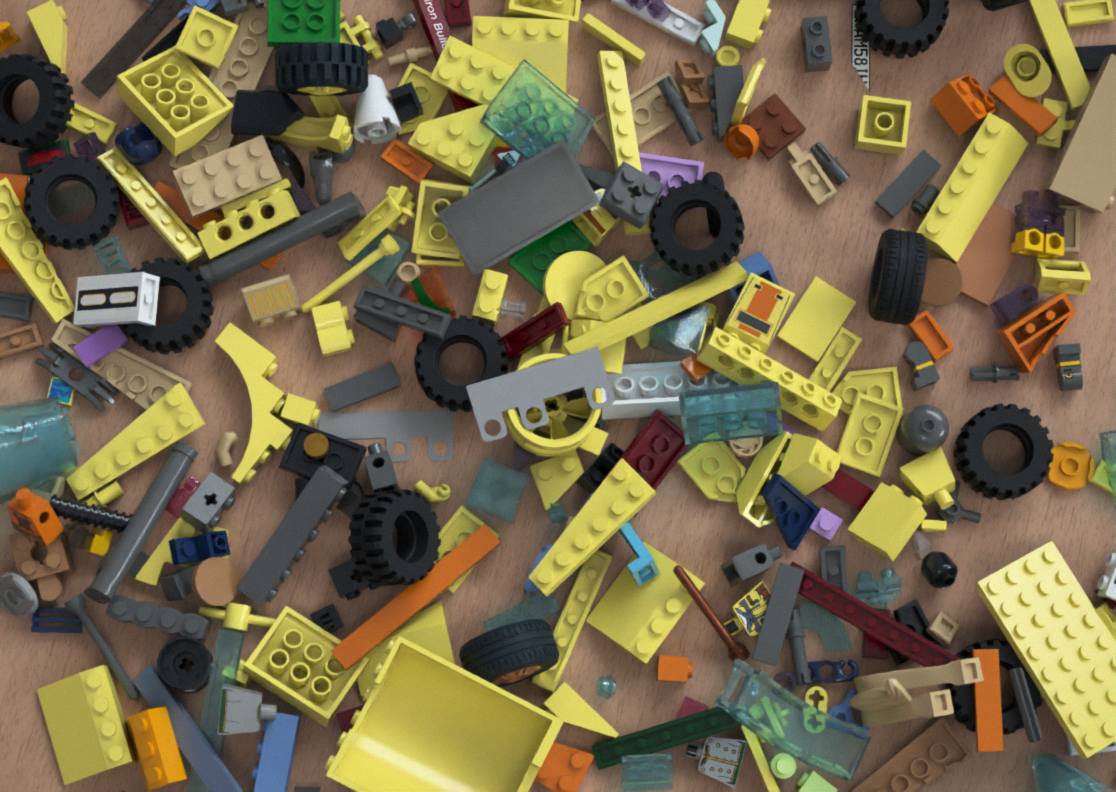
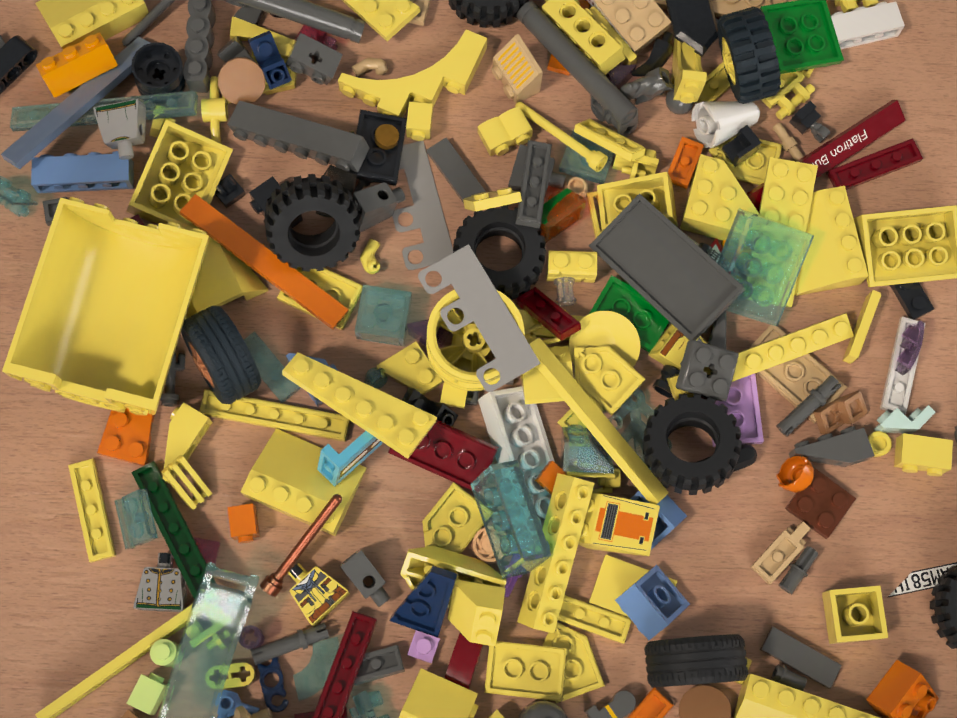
camera: 75 degrees right, 5 degrees down
(409, 359) = (492, 199): none -> light yellow plate
(606, 687) = (214, 462): clear light blue plate -> none
(627, 241) = (661, 385): none -> black wheel
(637, 708) = (199, 498): none -> light yellow tile
(747, 91) = (848, 467): light yellow tile -> none
(778, 614) = (316, 613): dark grey tile -> none
(816, 44) = (919, 528): dark grey brick -> none
(833, 303) = (652, 602): none -> medium blue slope

